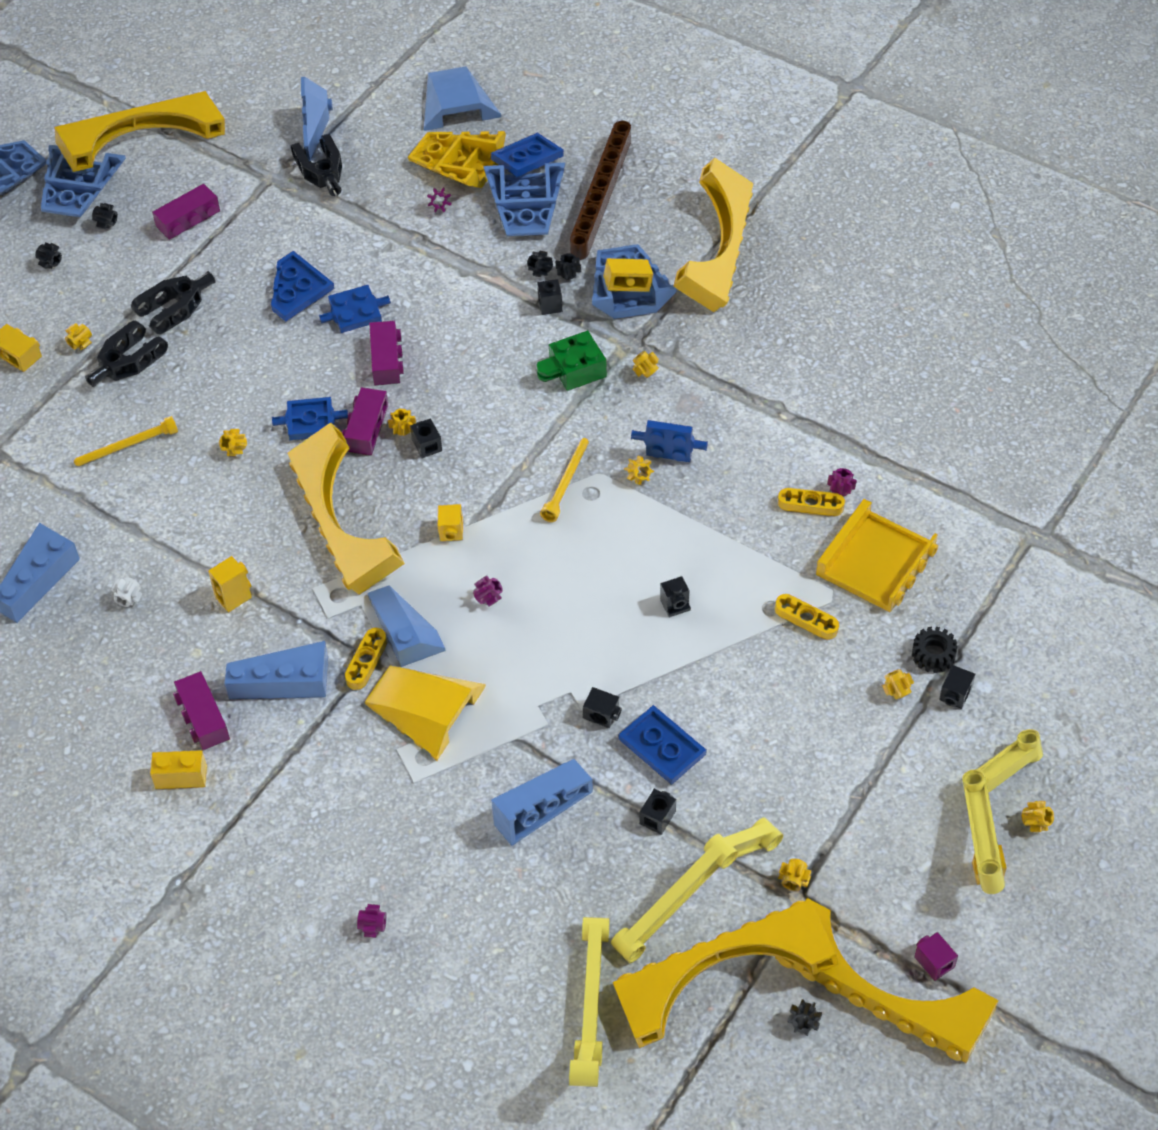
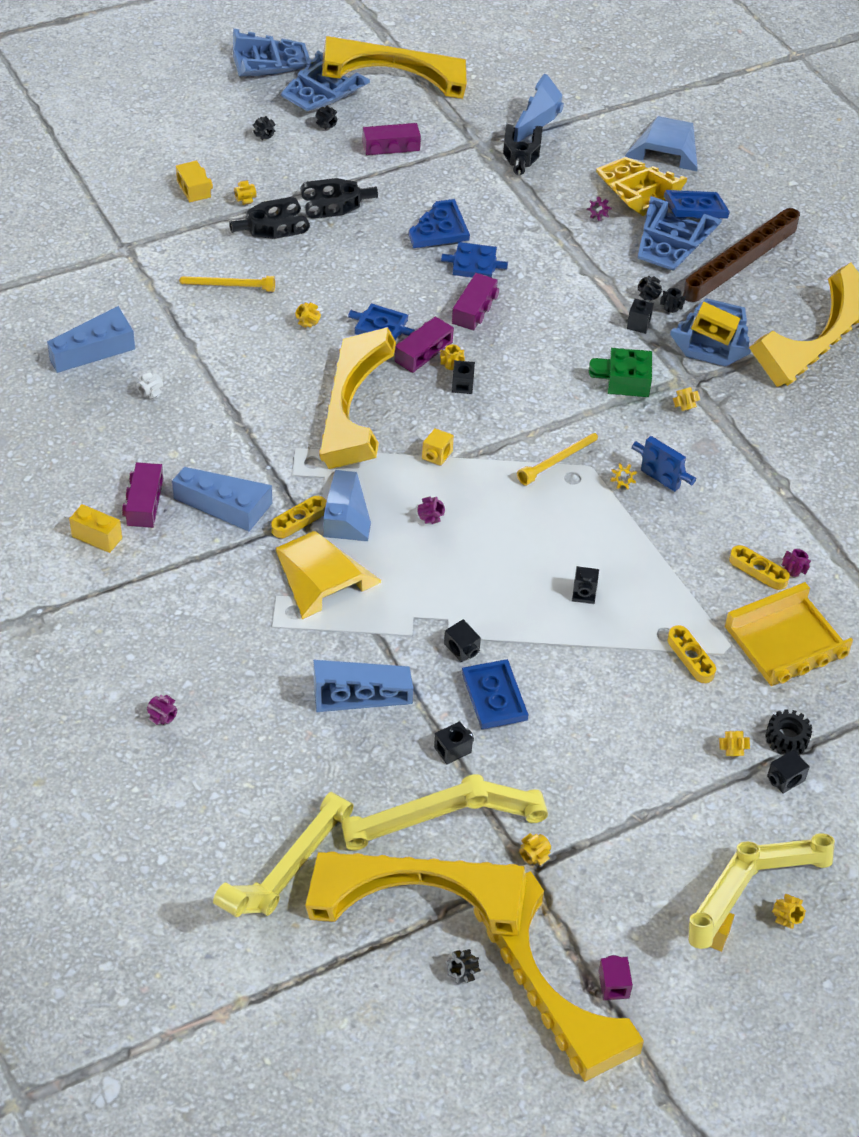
camera: 25 degrees right, 5 degrees down
(230, 583) = (229, 412): yellow brick -> none

